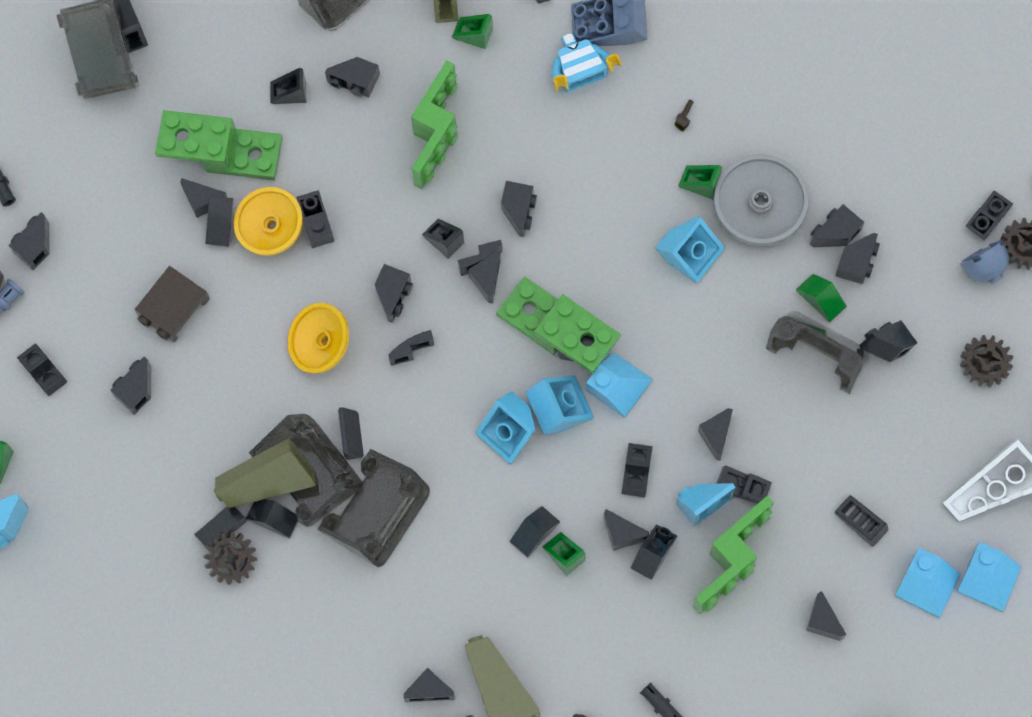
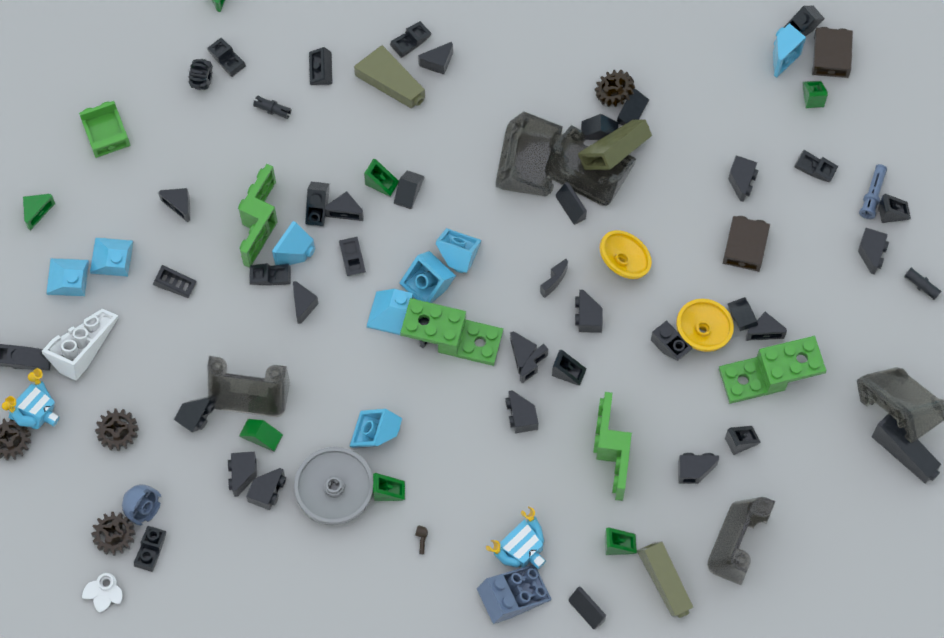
camera: 155 degrees right, 5 degrees down
(1004, 682) = (36, 207): none -> green slope

